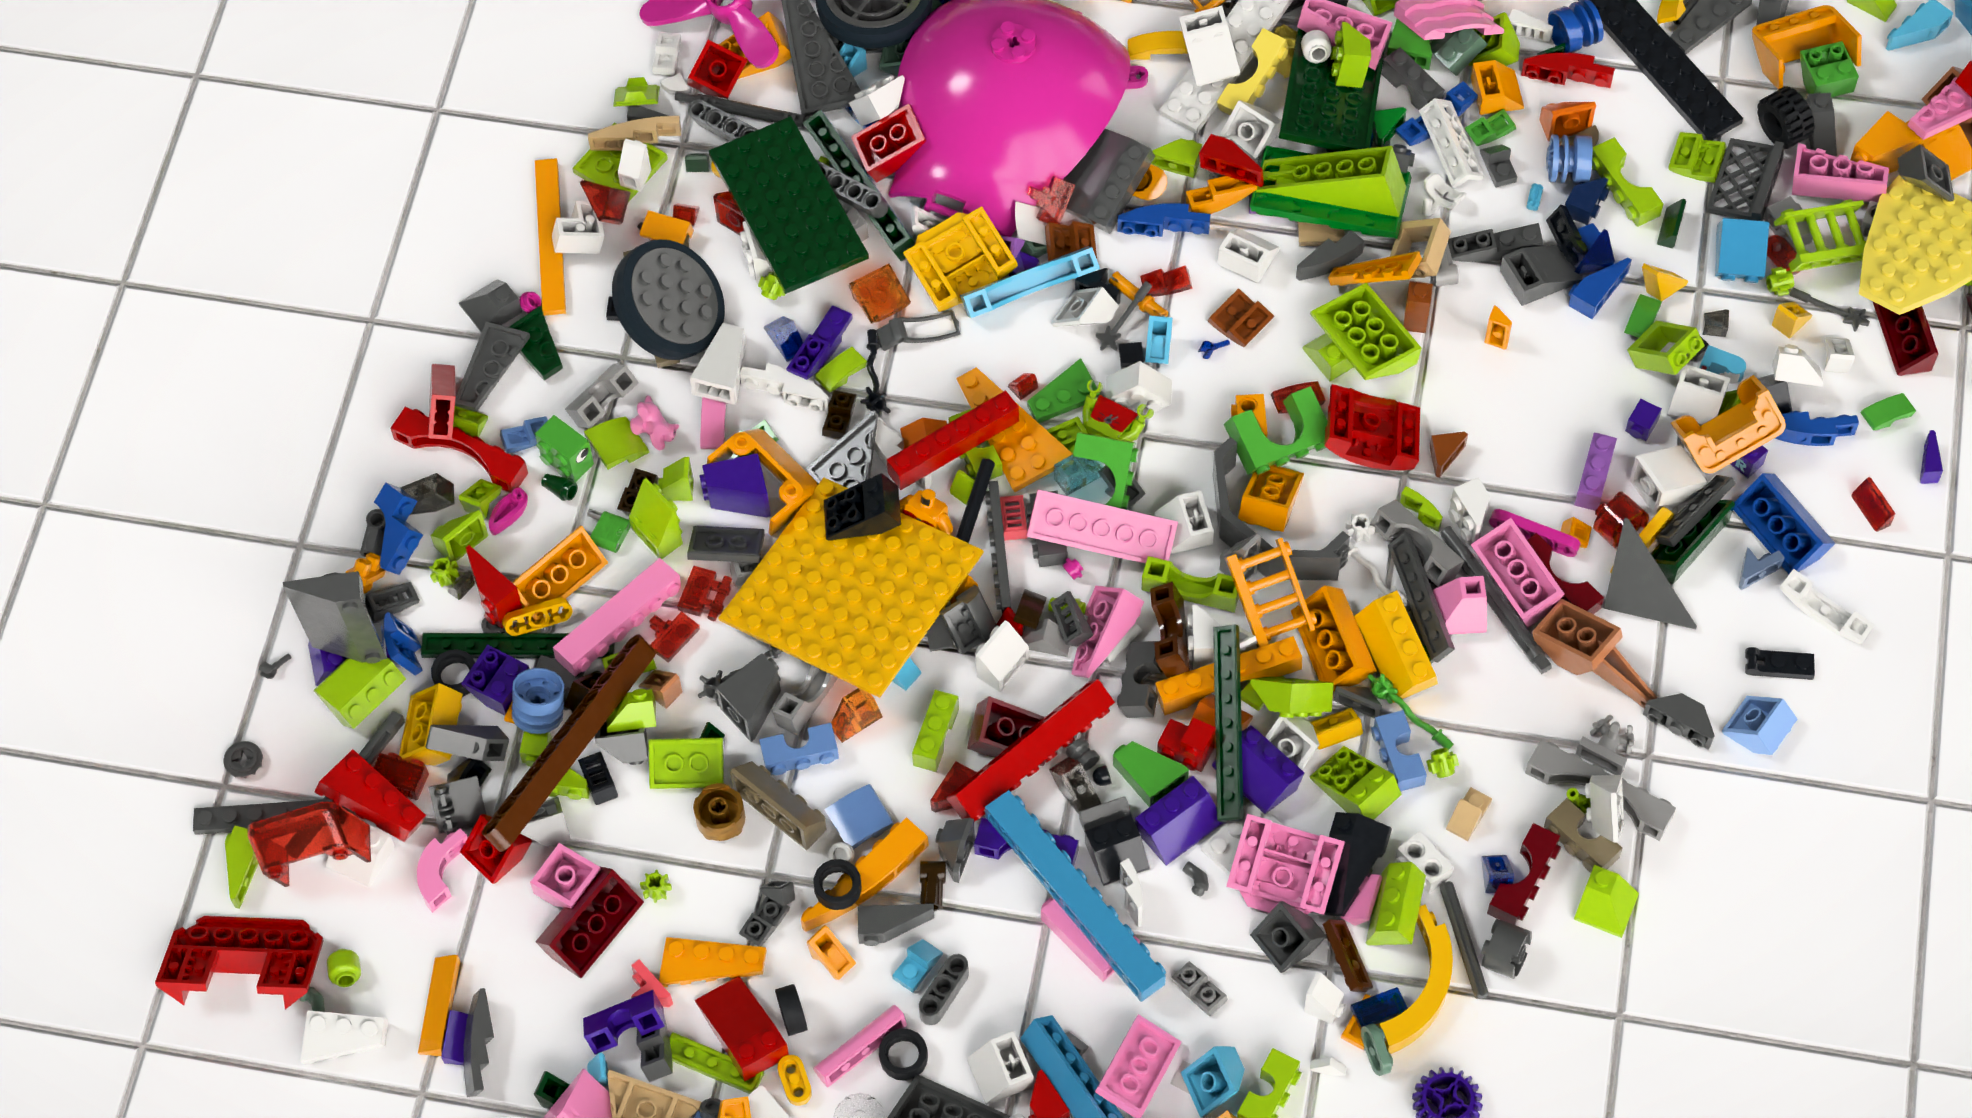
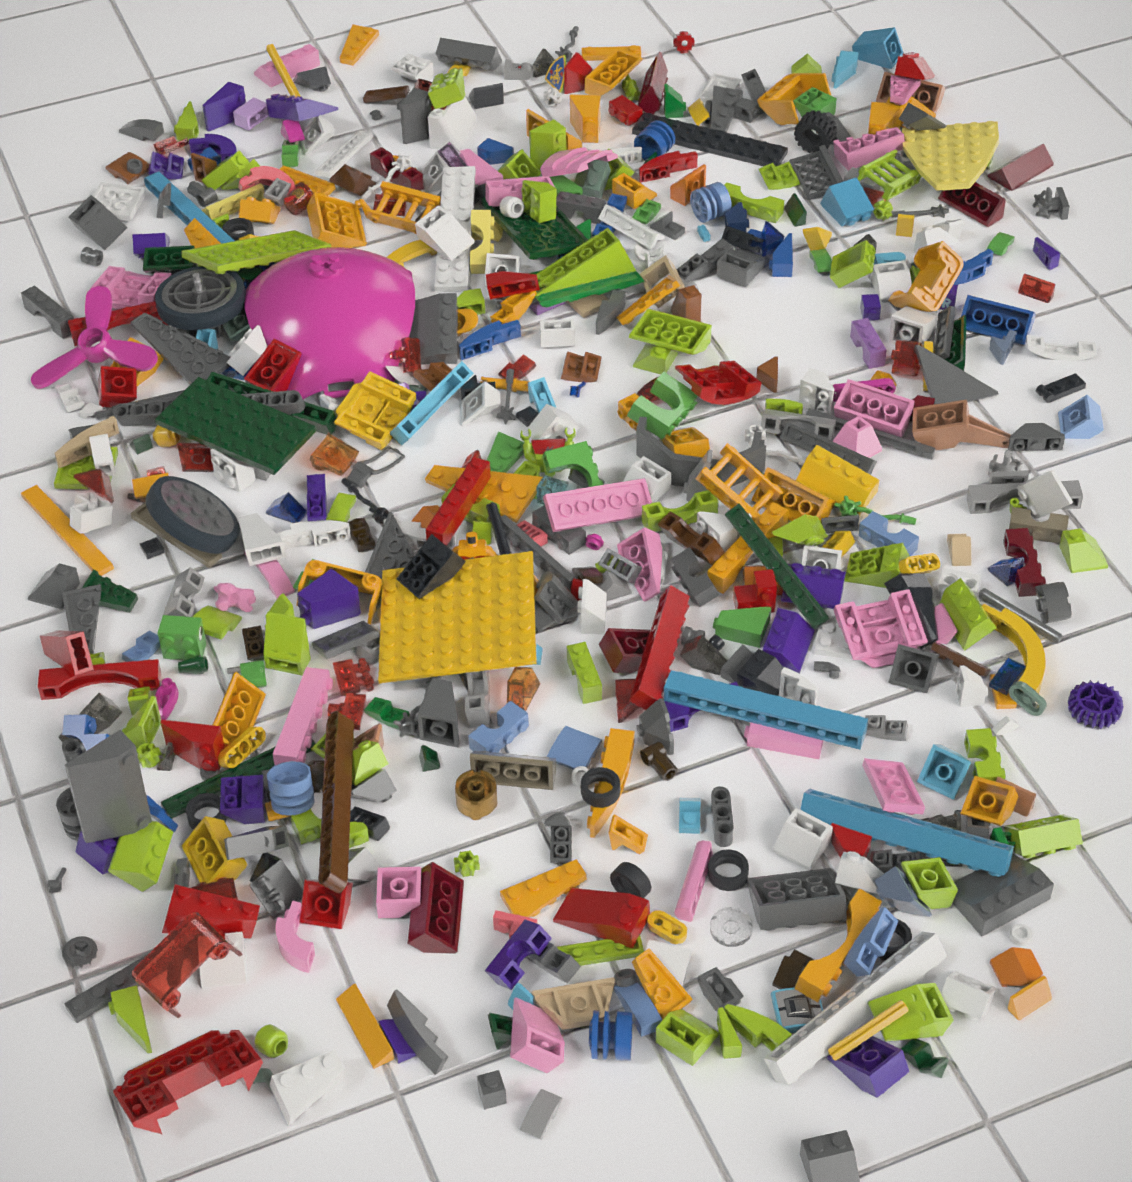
camera: 35 degrees left, 15 degrees down
(529, 301) = (83, 571): dark pink plate -> none
(636, 93) = (65, 423): lime piece -> none
(685, 762) = (425, 778): lime tile -> none
(707, 656) = (384, 712): none -> green slope
(770, 287) = (255, 484): lime gear -> none
(886, 922) = (645, 800): dark grey slope -> none
(1390, 803) = (923, 560): none -> yellow beam
(1442, 762) = (921, 528): lime gear -> none
(1498, 329) = (746, 298): light orange slope -> none
(1737, 31) = (746, 110): none -> dark grey brick

